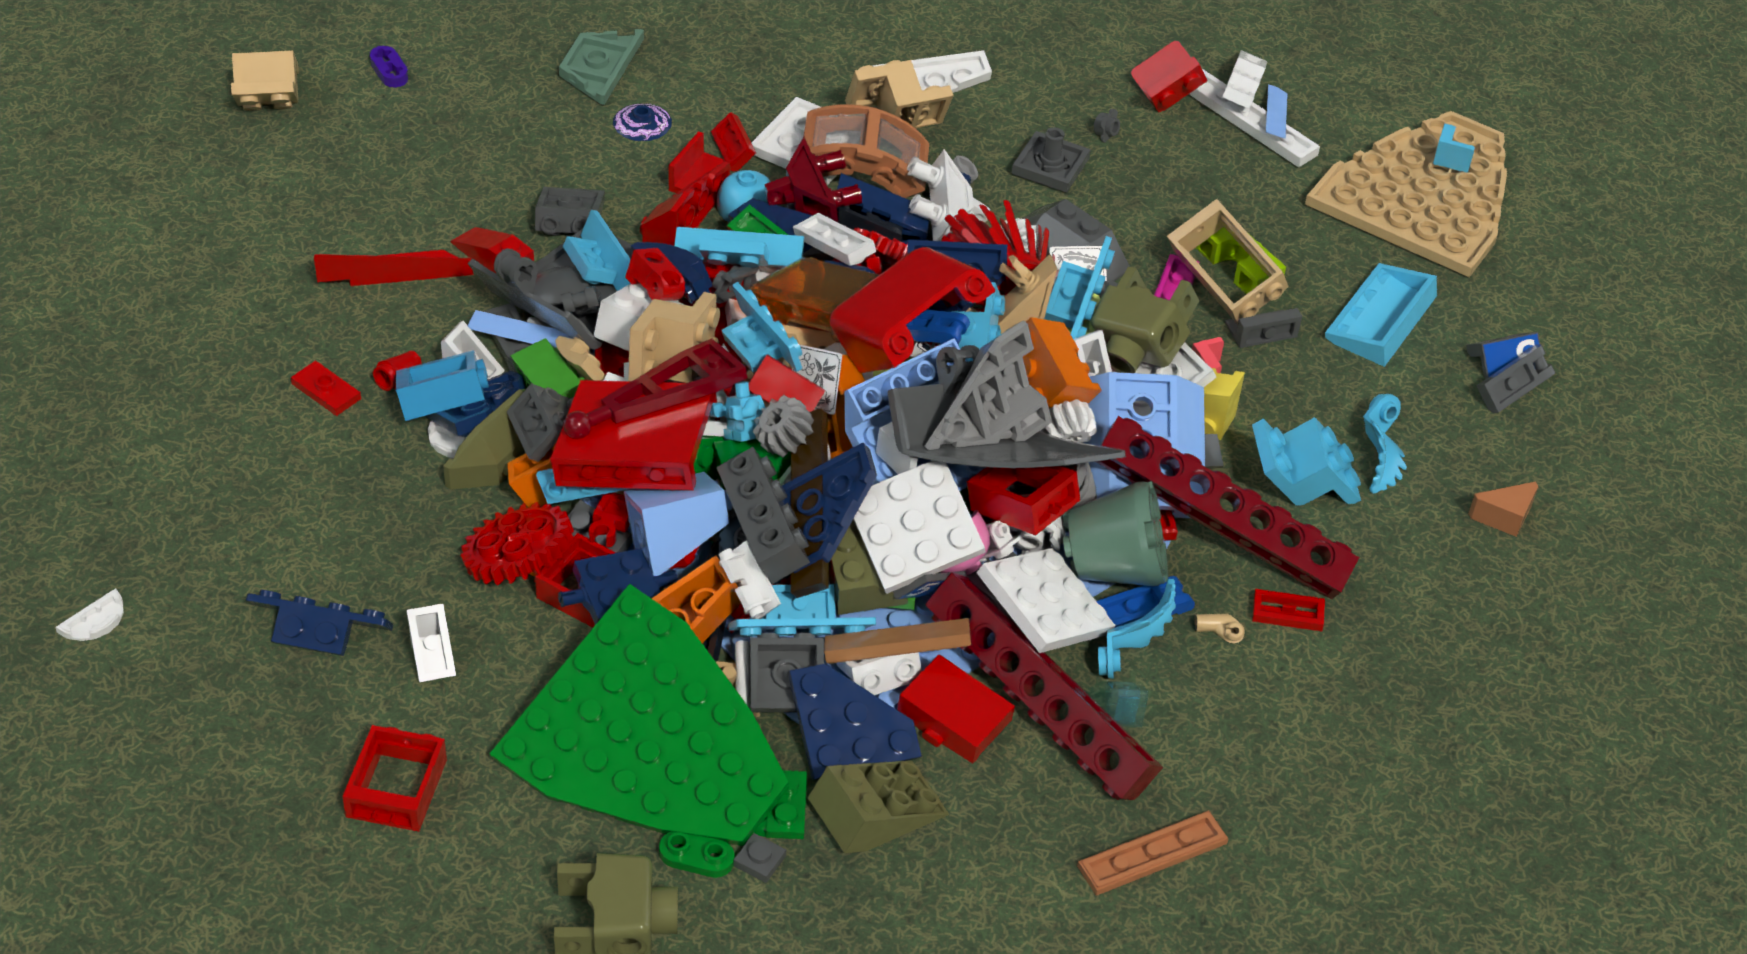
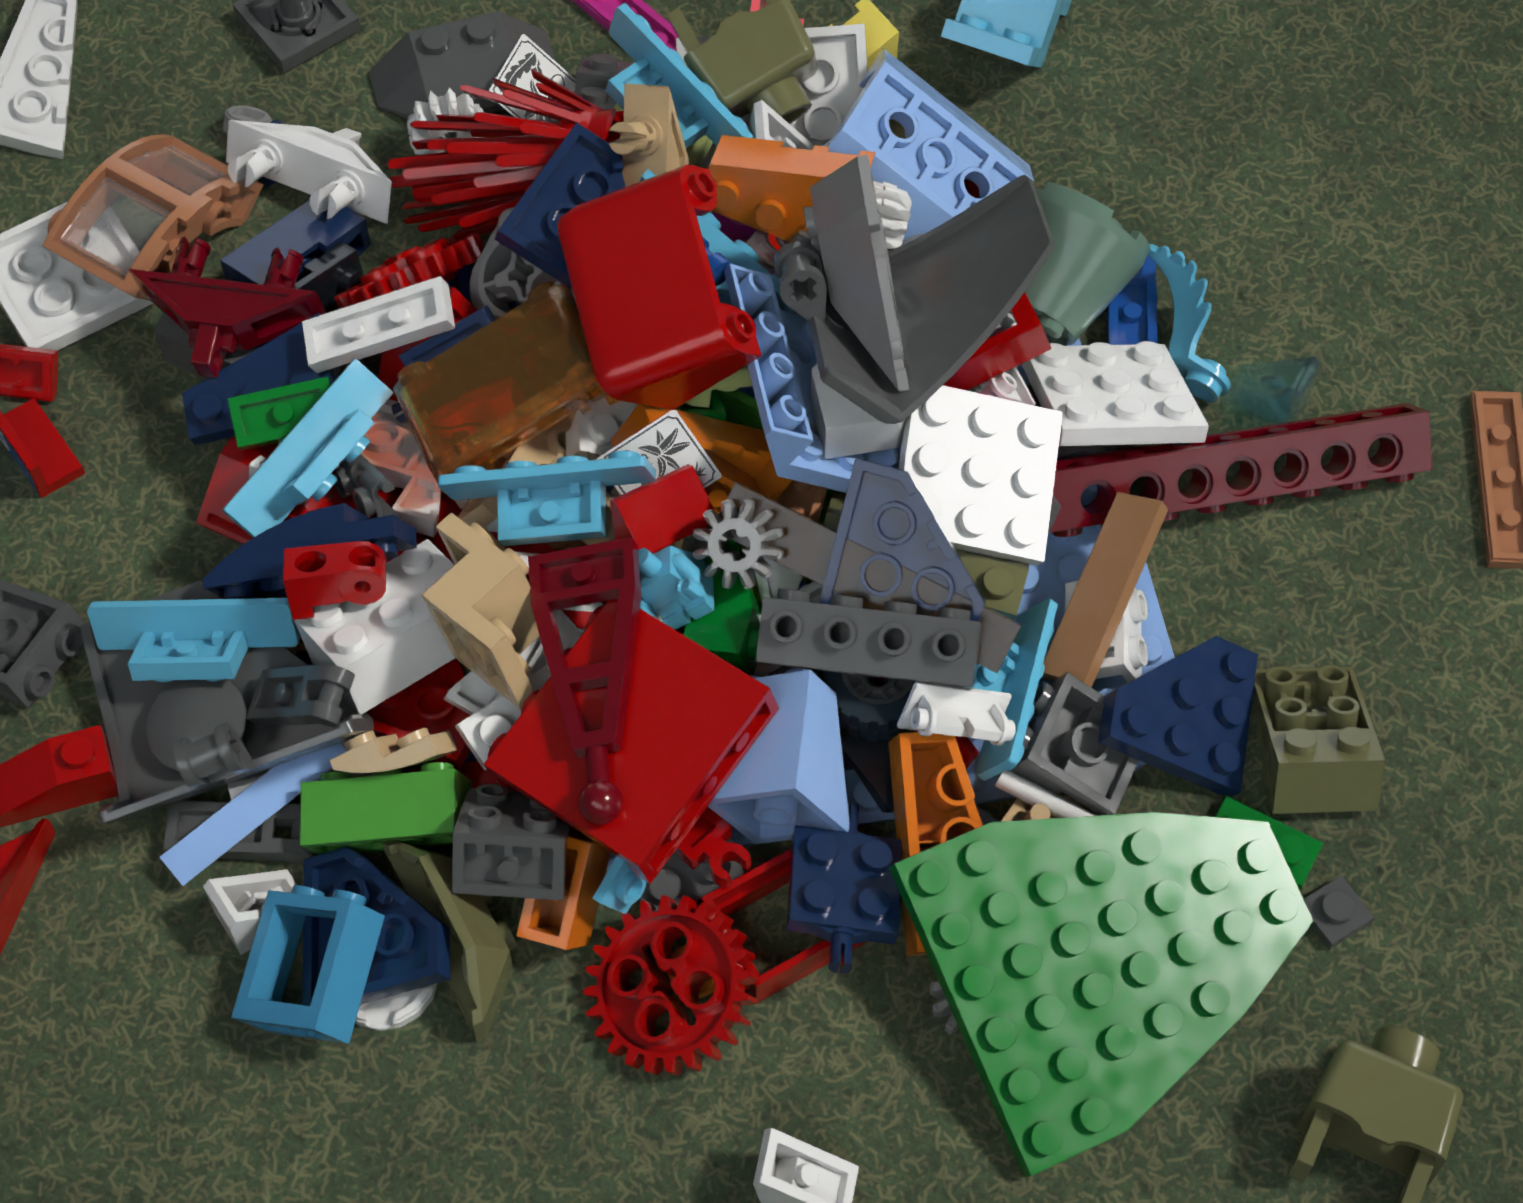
camera: 60 degrees left, 15 degrees up
(326, 388) = (182, 1136): red plate -> none
(385, 371) = (210, 1018): red cone -> none
(684, 208) = (127, 501): red wedge -> none
(696, 854) = (1299, 983): green plate -> none
(739, 189) = (136, 406): medium azure cylinder -> none
(898, 91) = (75, 122): tan bracket -> none
(955, 709) = (1213, 581): red container -> none
(1221, 624) = (1202, 235): tan arm -> none
(1236, 525) = (1069, 132): dark red brick -> none
(1288, 614) = (1187, 185): red tile -> none

